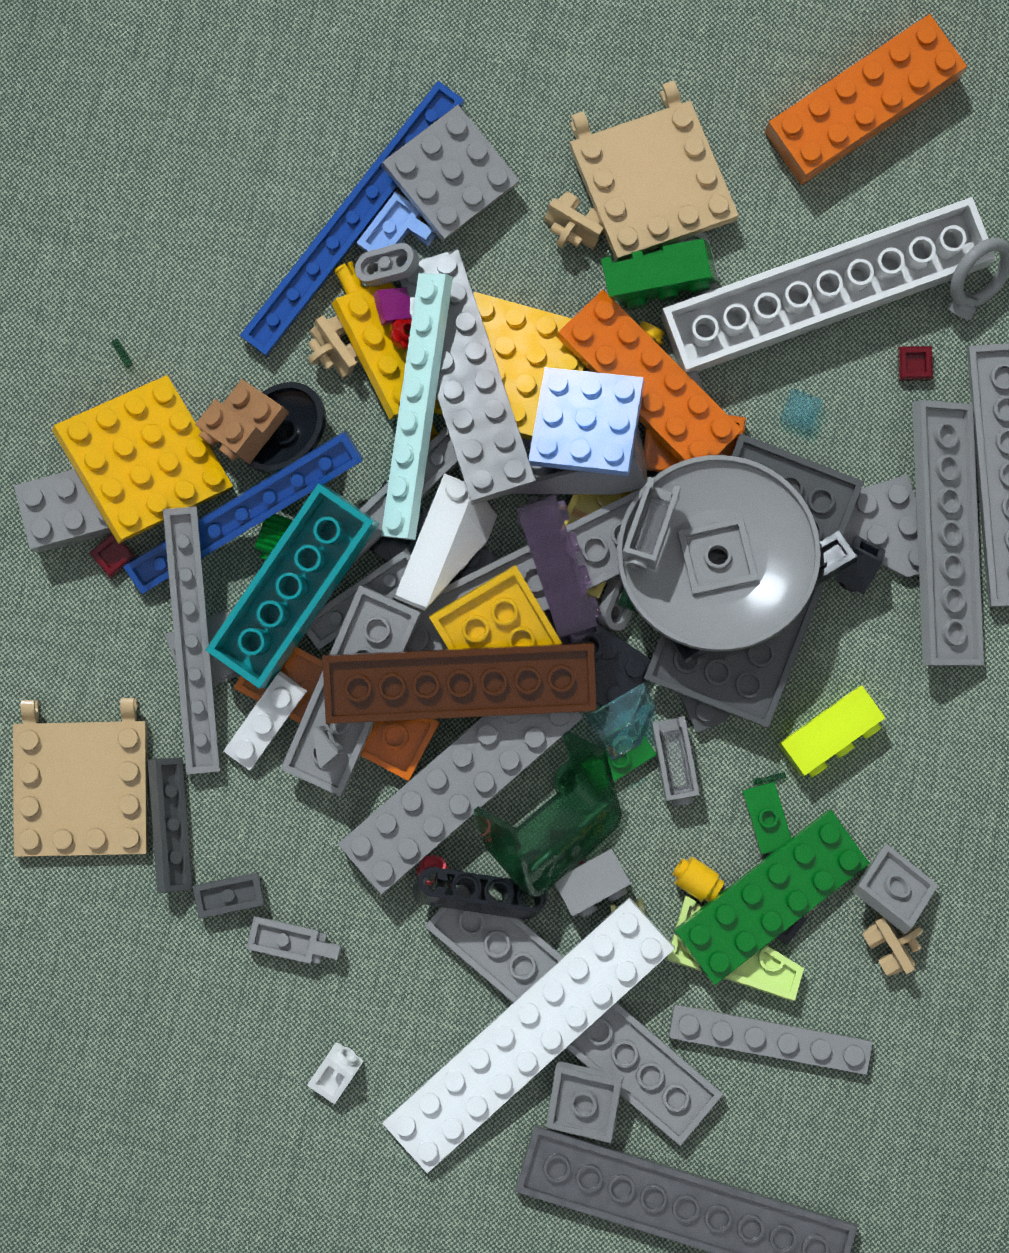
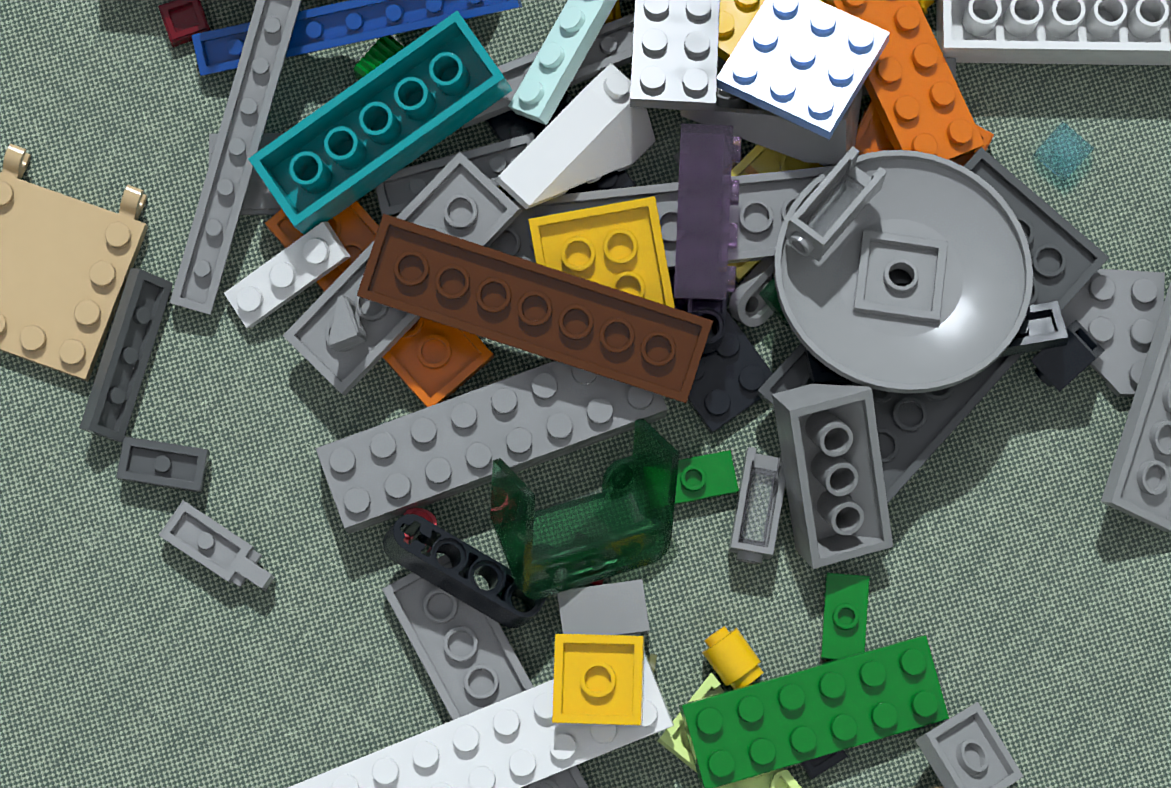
camera: 15 degrees right, 5 degrees down
(335, 1072) = (206, 724): white bracket -> none
(609, 938) = (598, 679): none -> yellow plate
(623, 721) = (714, 434): clear light blue slope -> none
(721, 720) = (833, 472): none -> light grey slope
(774, 777) = (866, 572): clear green piece -> none
(832, 732) = (961, 543): neon yellow brick -> none

